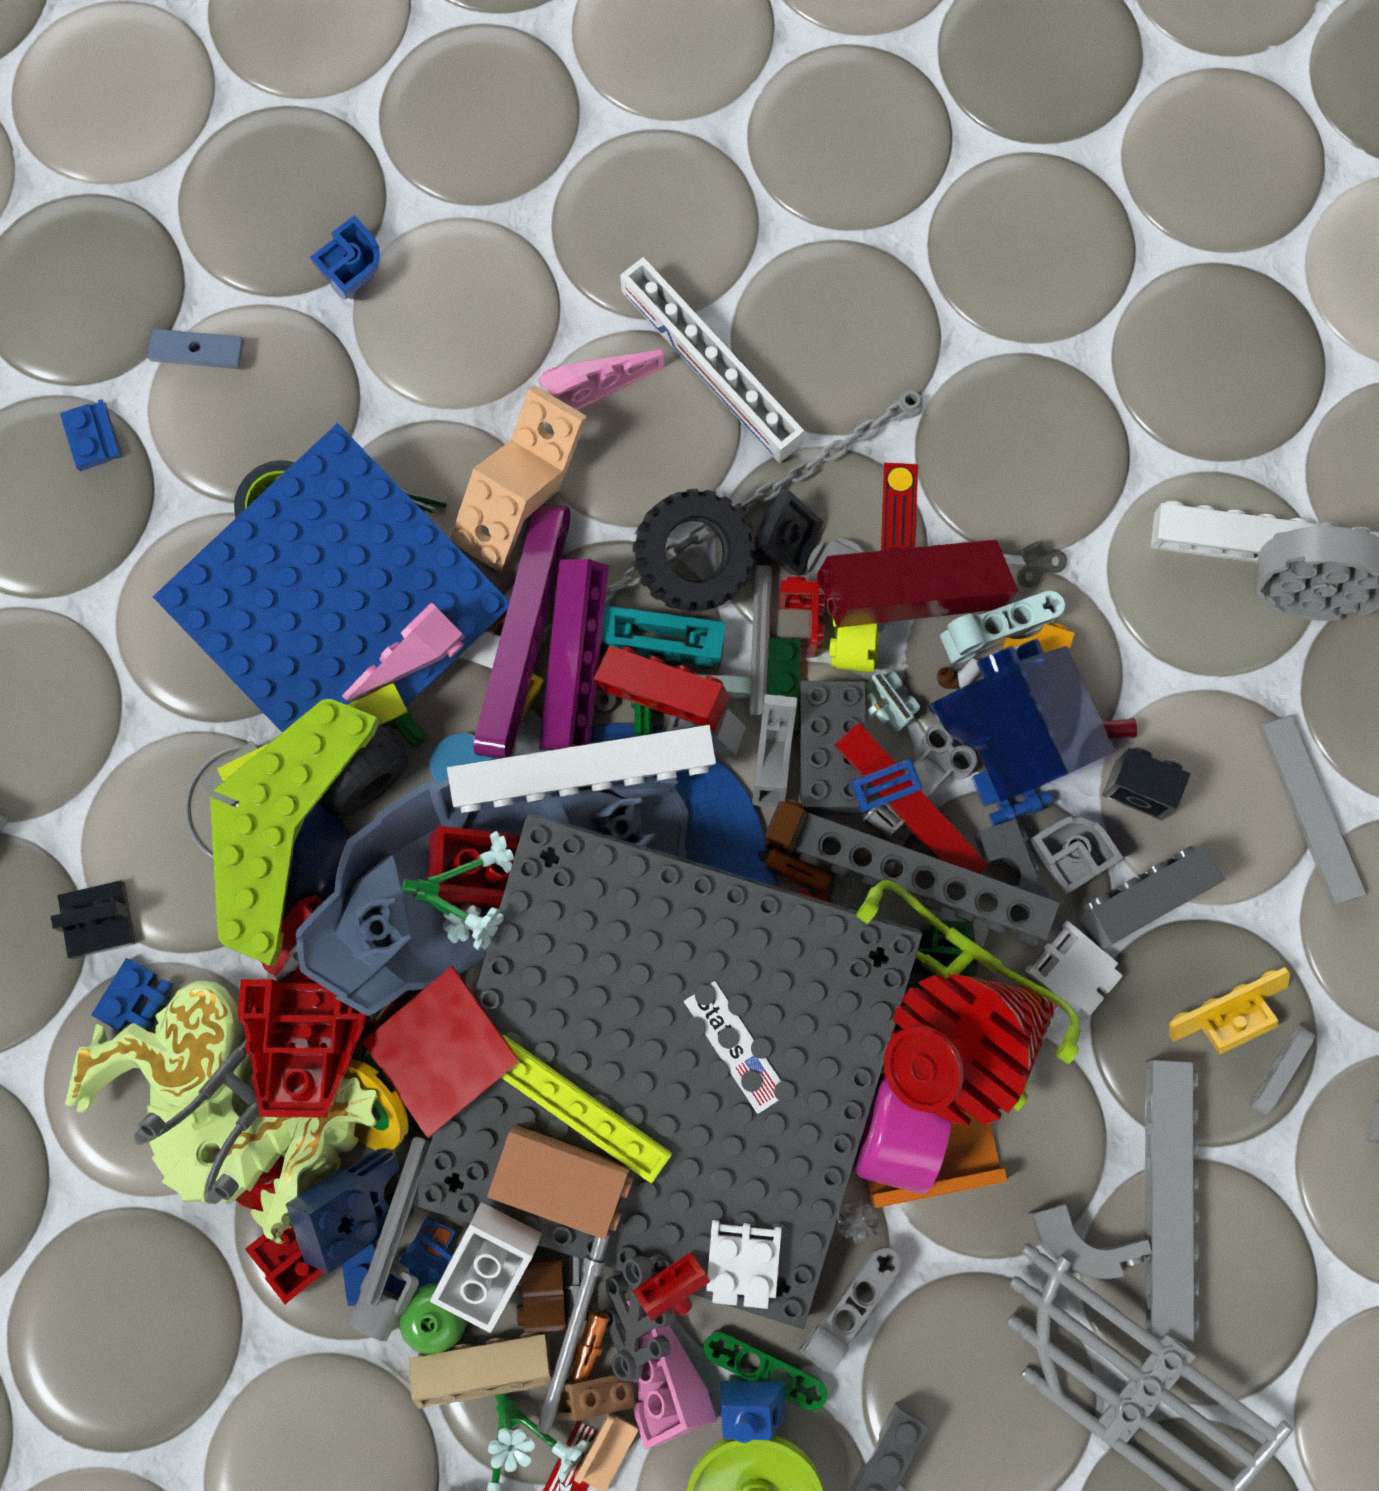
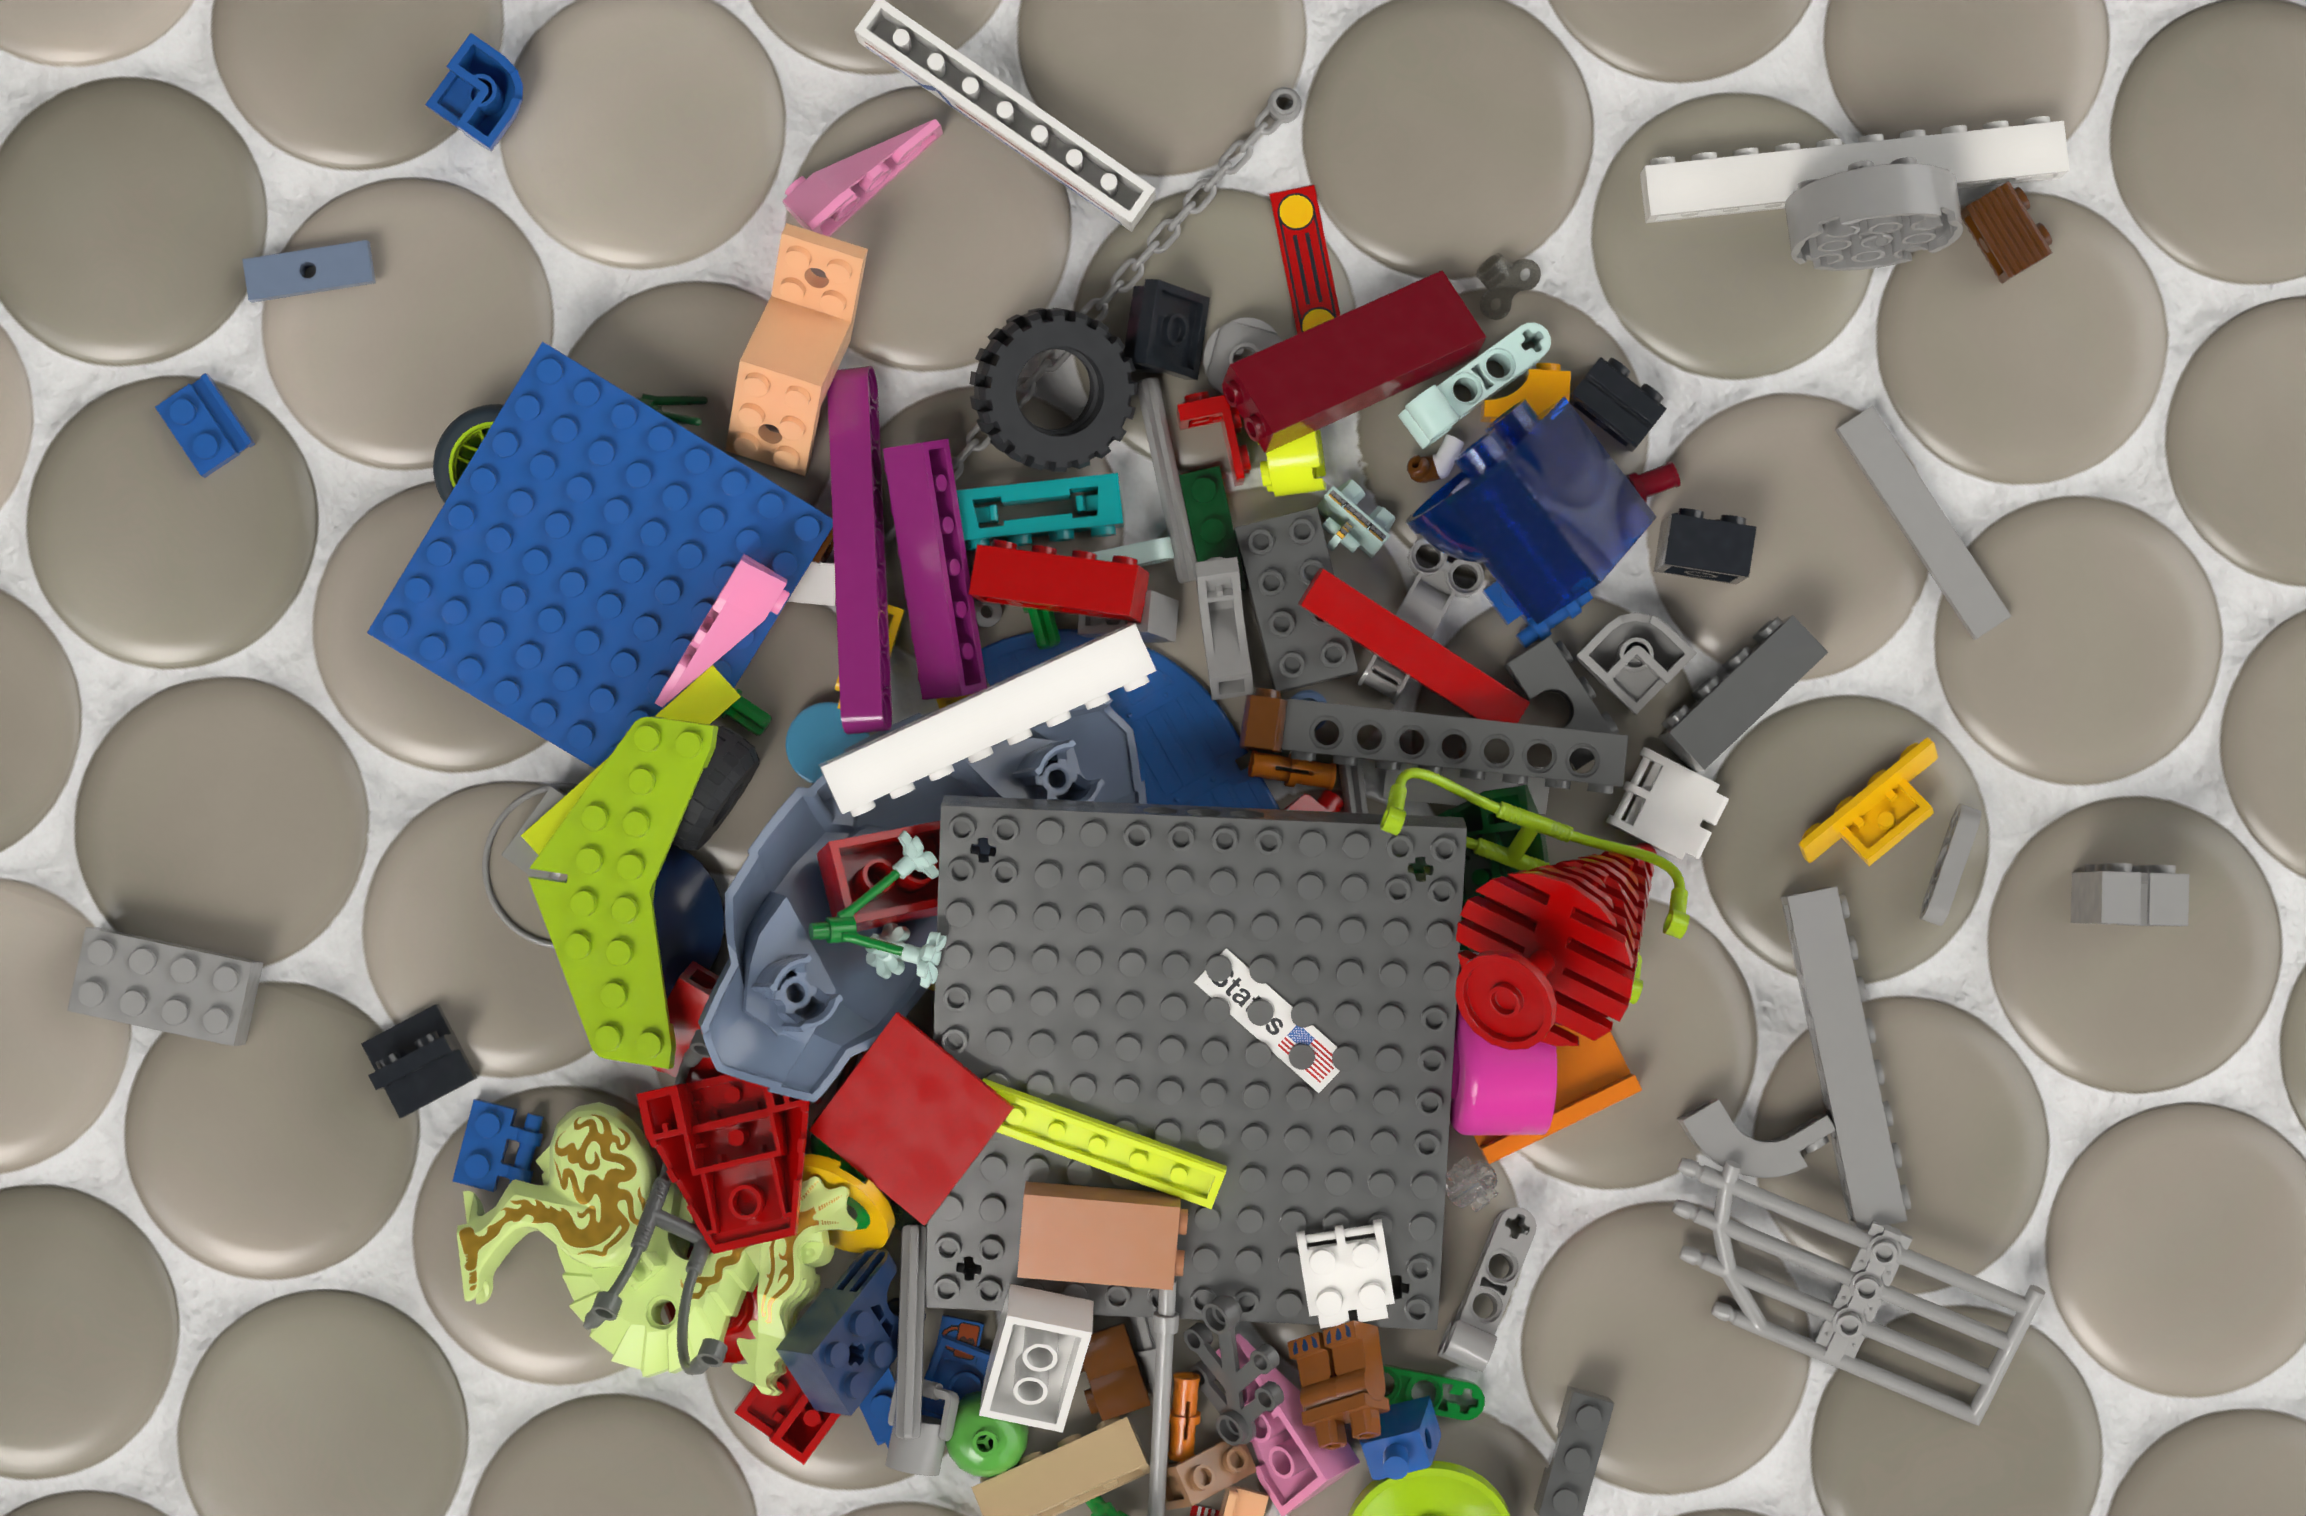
camera: 15 degrees left, 10 degrees up
(672, 1288) = (1267, 1324): red tile -> none
(718, 1351) = (1341, 1382): none -> dark orange hips
(860, 795) = (1347, 660): blue tile -> none
(1104, 666) = (1617, 402): none -> black brick

